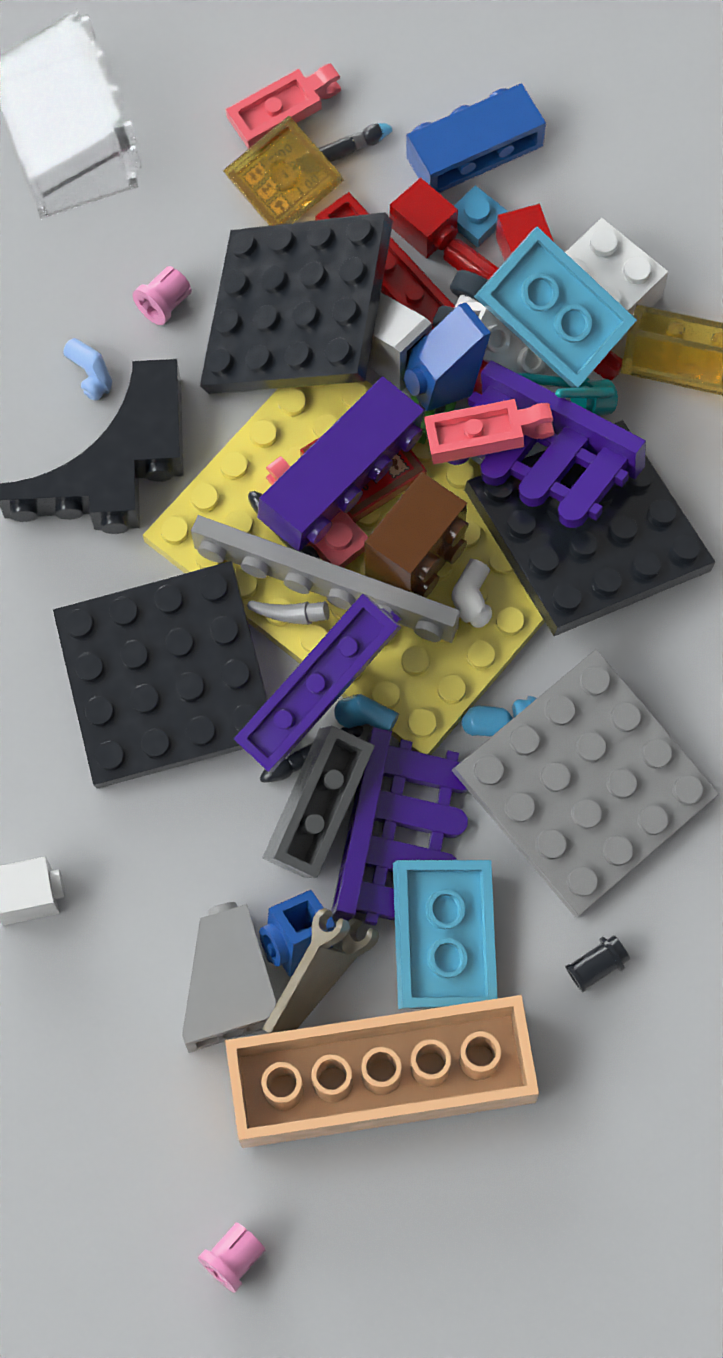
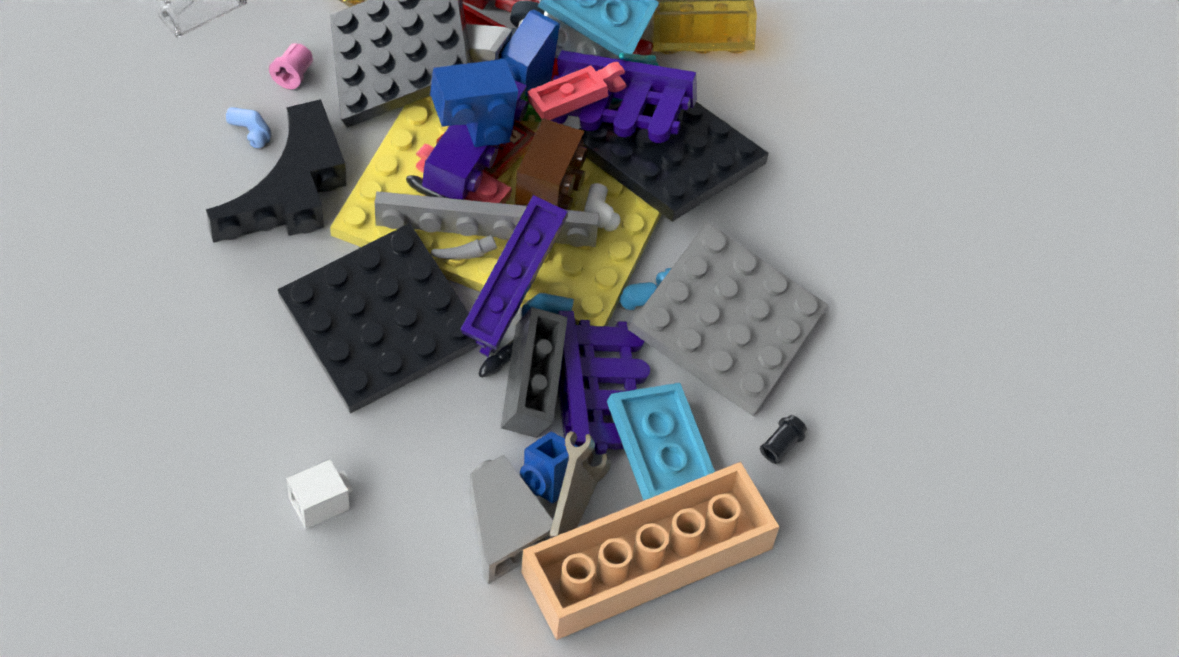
camera: 25 degrees left, 15 degrees down
(337, 435) = (478, 96): none -> blue brick

